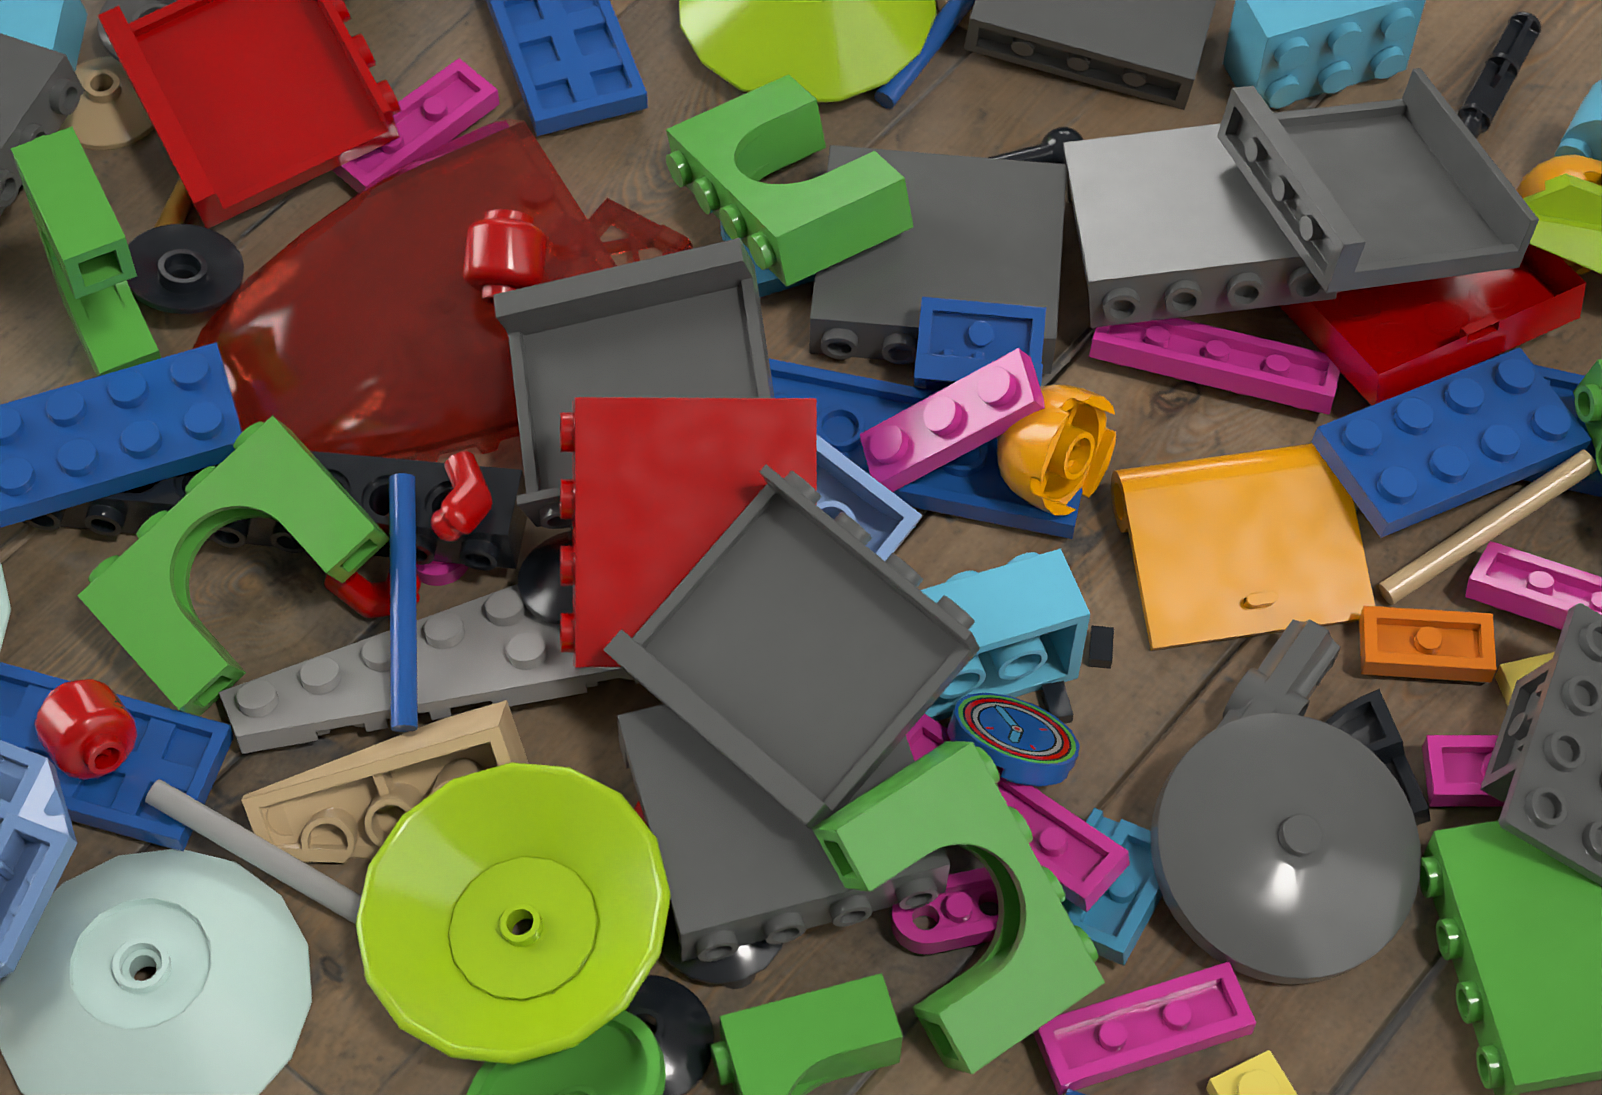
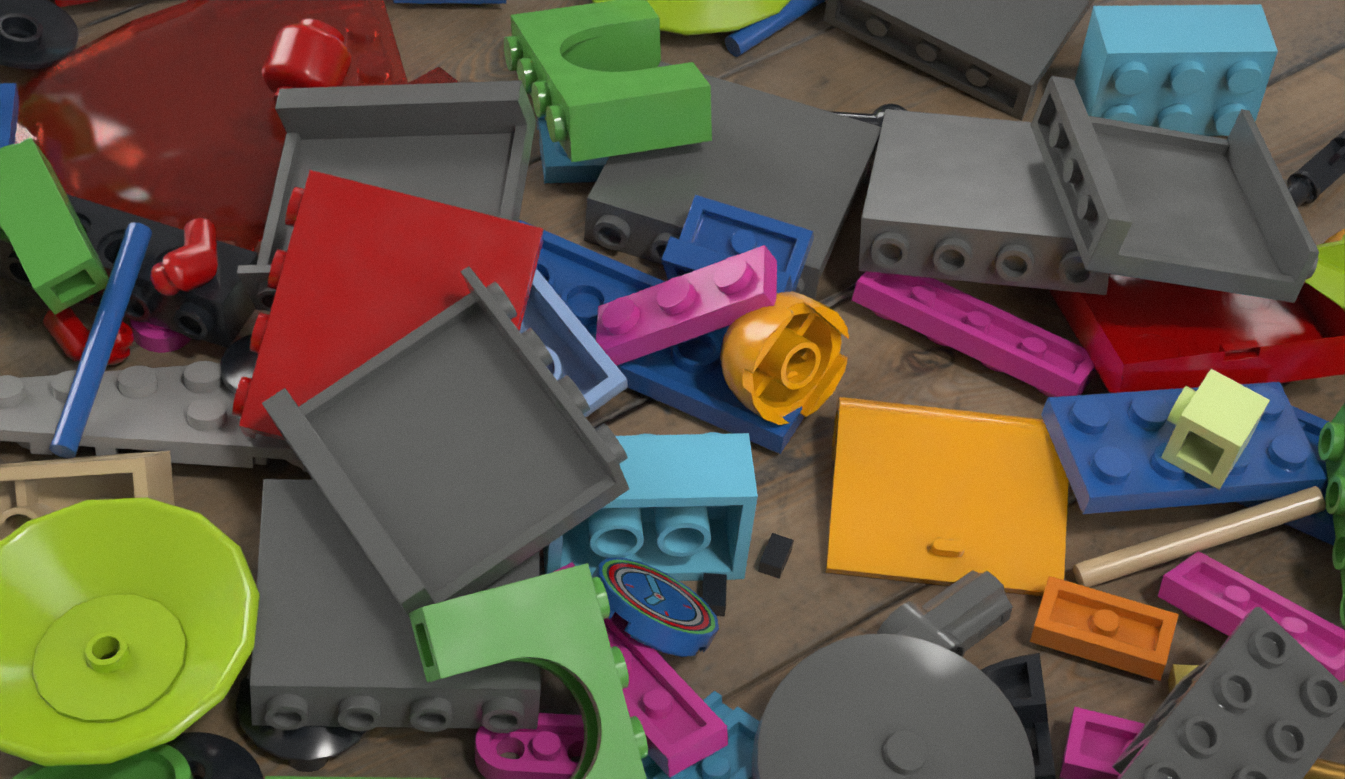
camera: 10 degrees right, 10 degrees down
(1485, 425) = (1213, 427): none -> yellowish green brick

